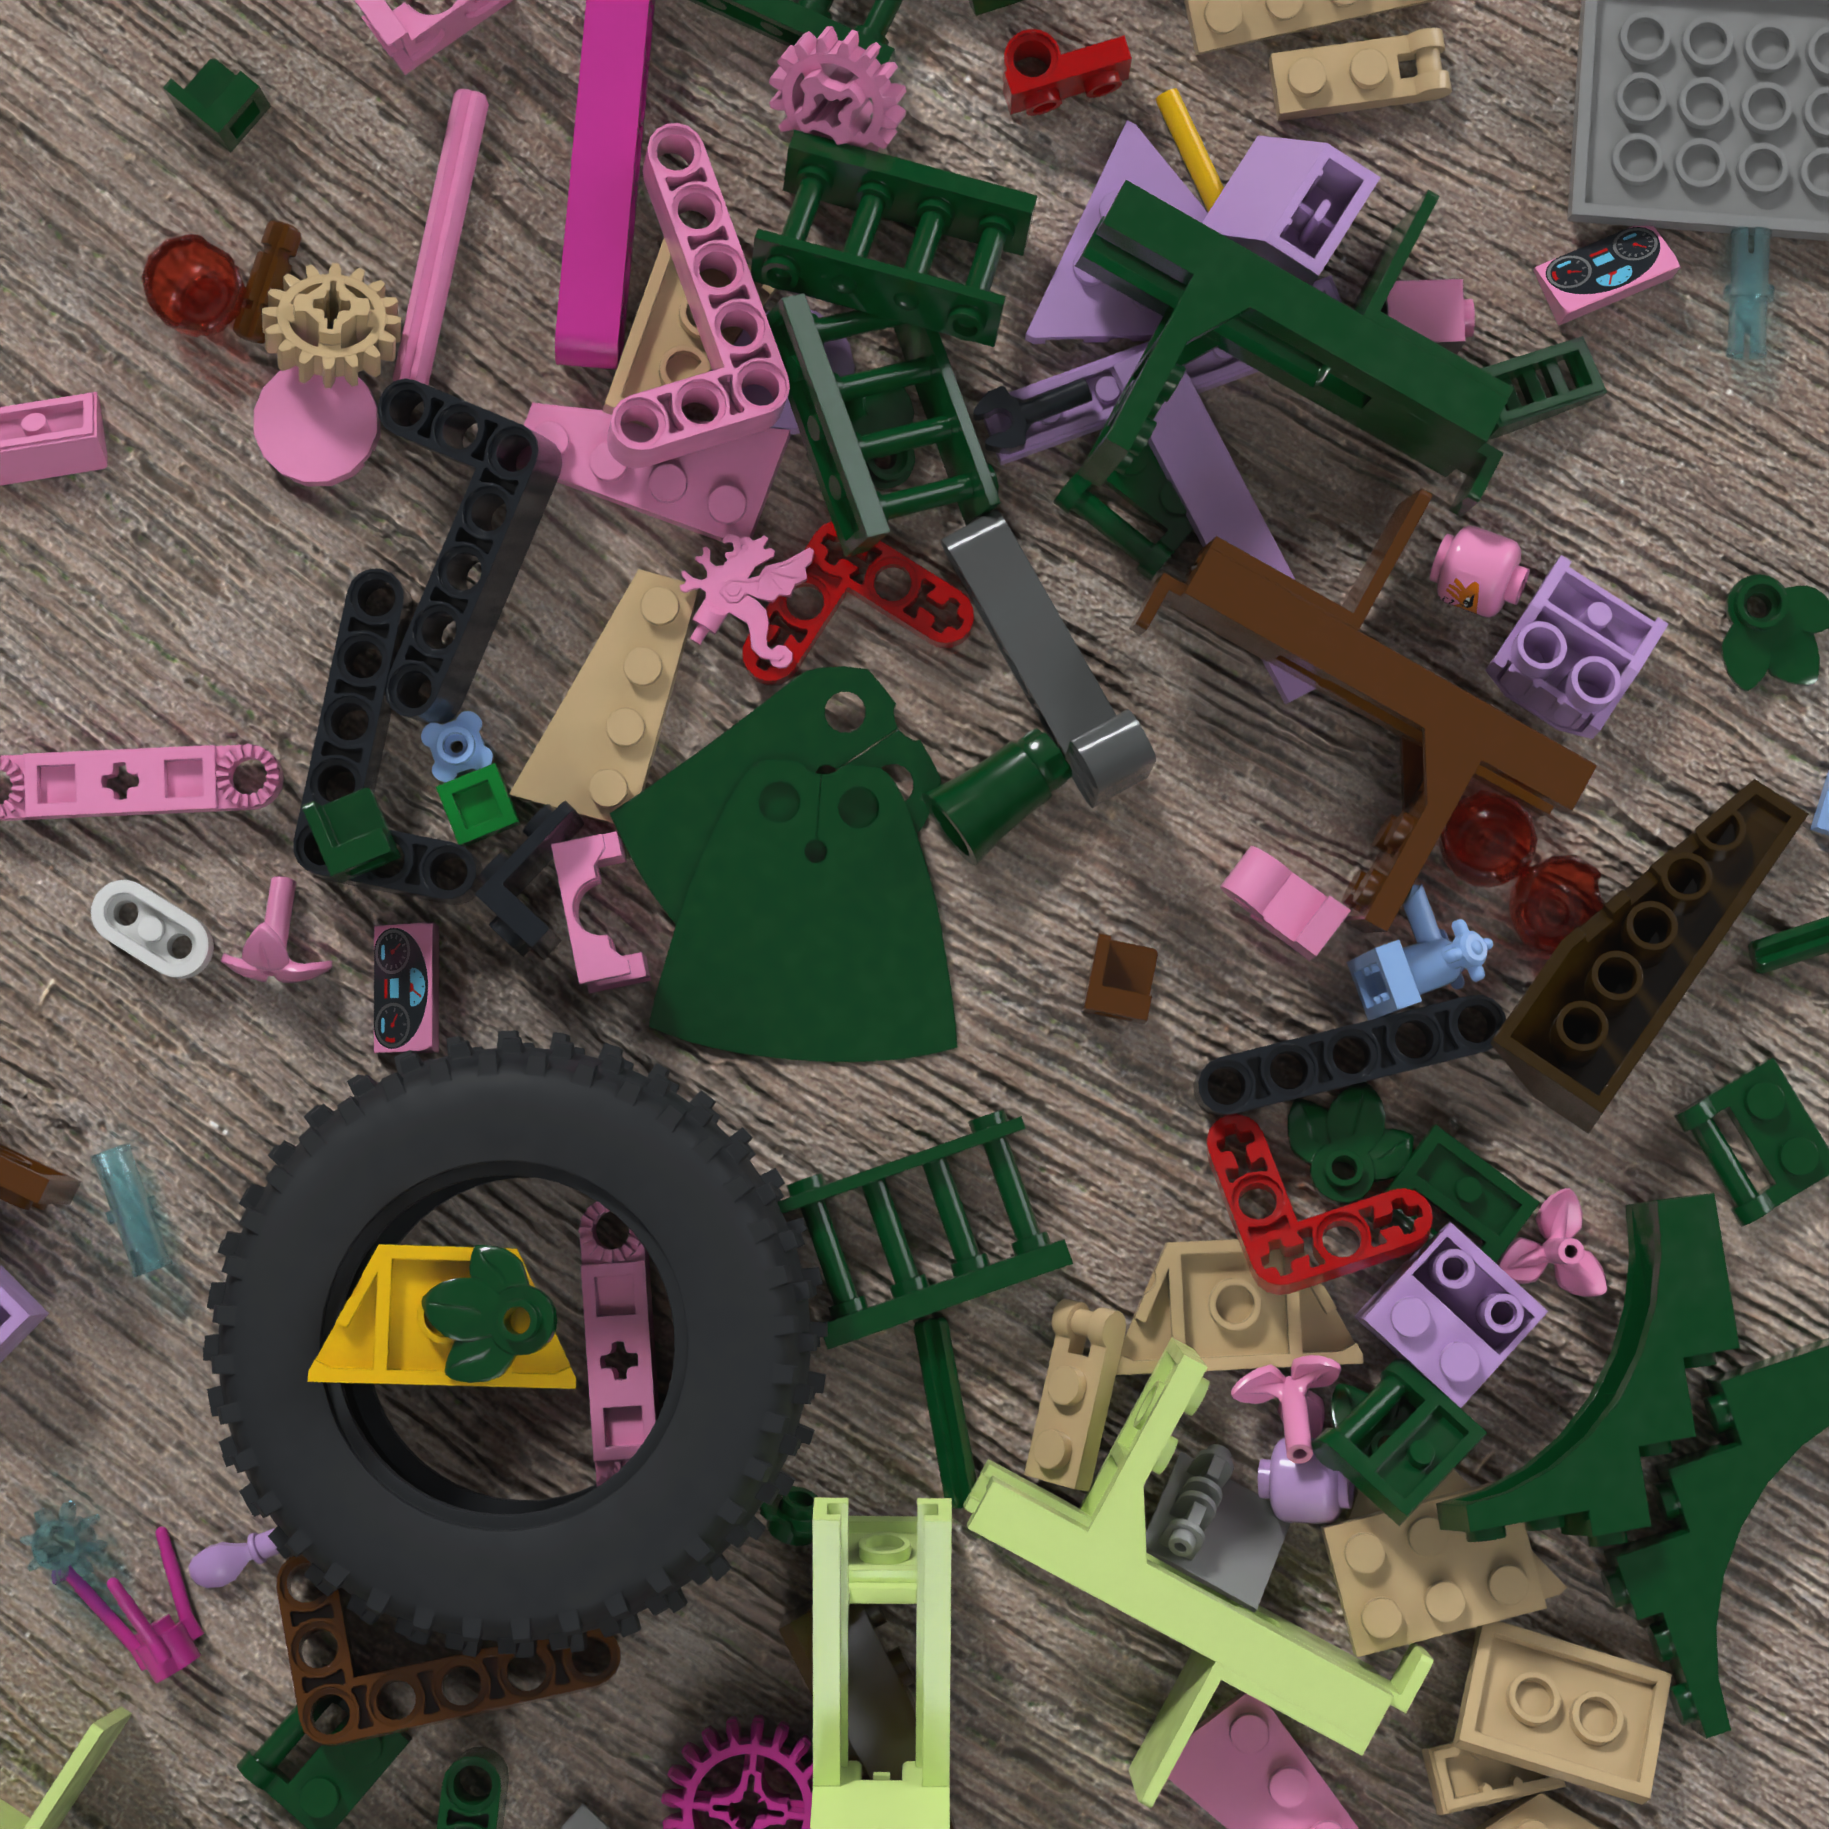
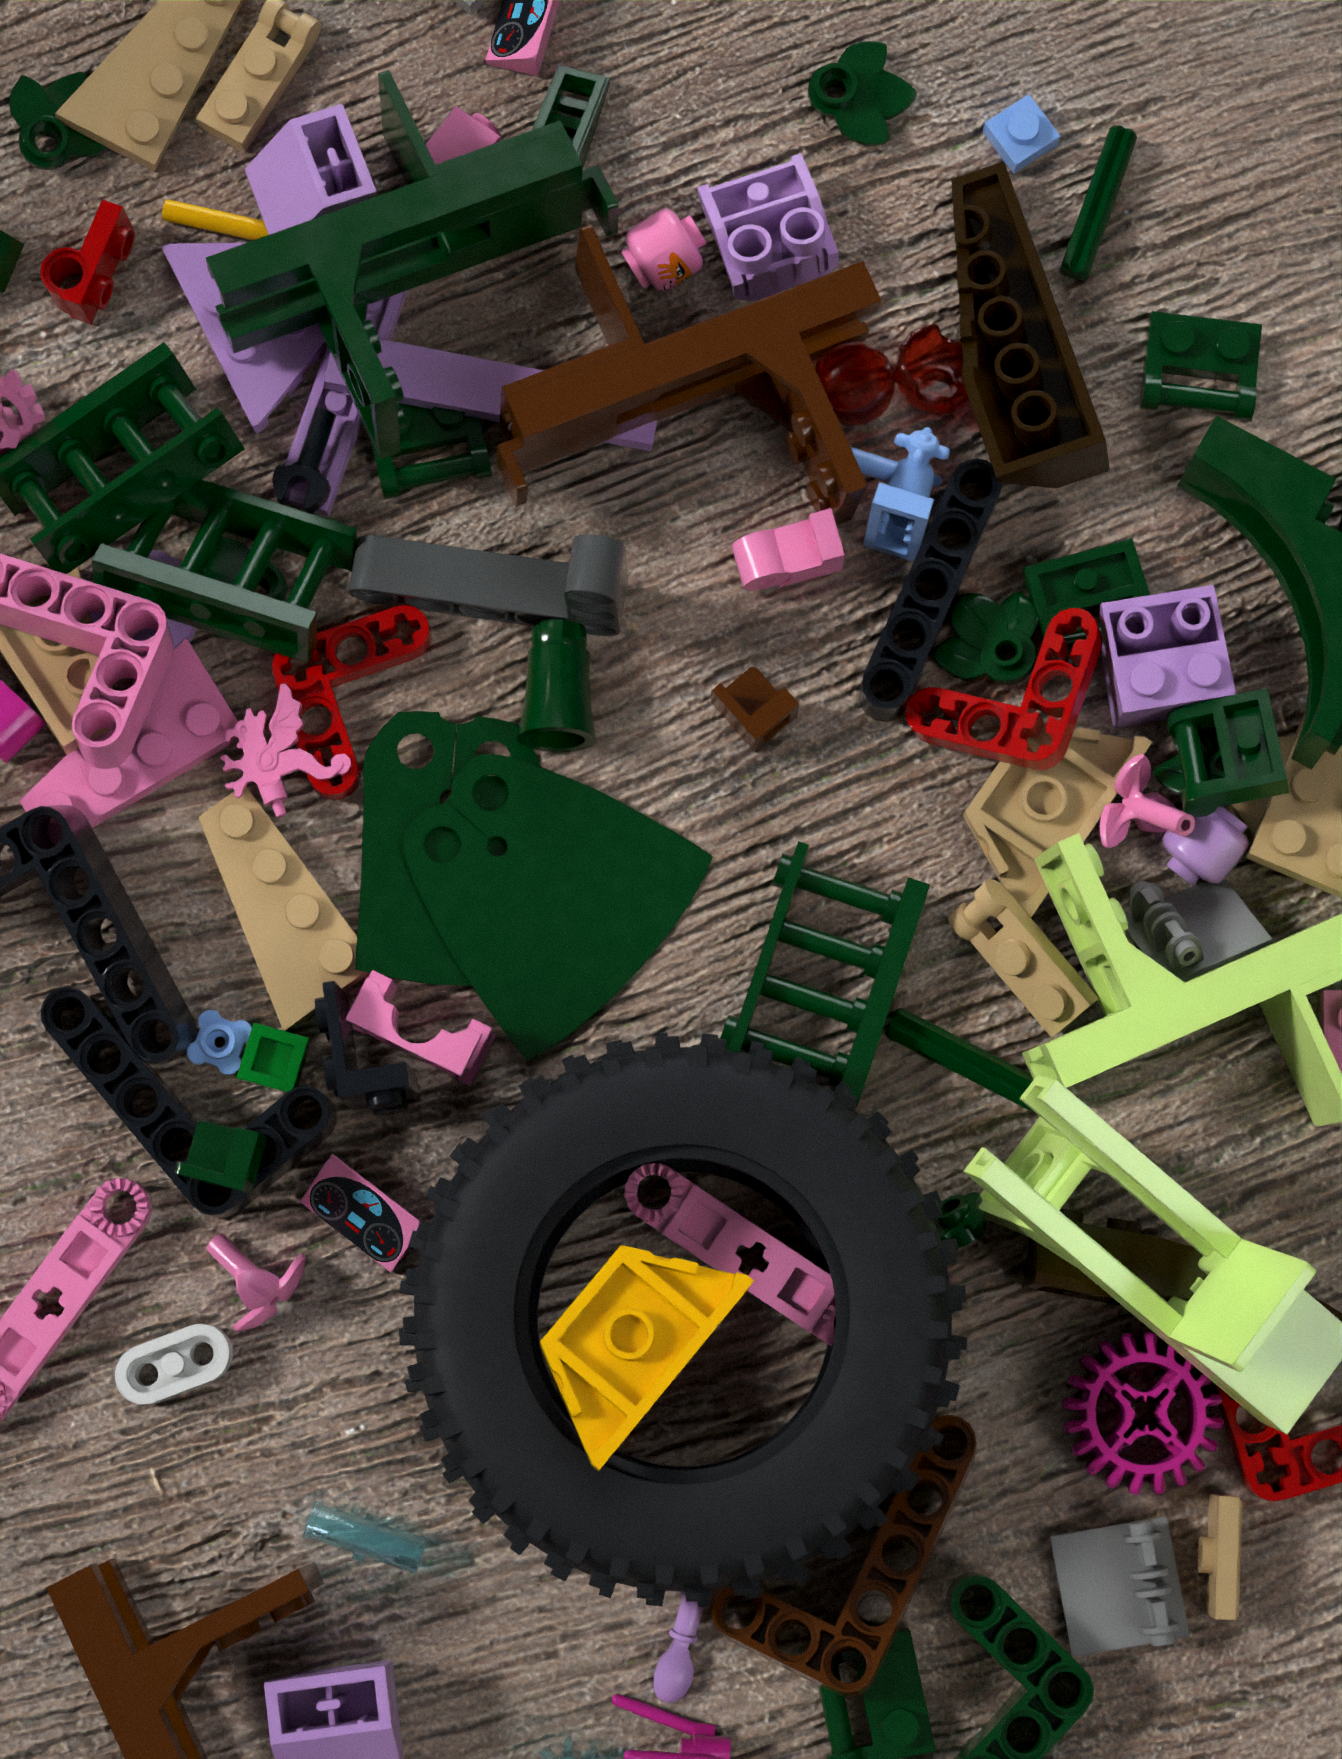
camera: 50 degrees left, 5 degrees down
(479, 1314) = (647, 1305): dark green plate -> none
(1575, 1268) = (1176, 549): bright pink plant -> none

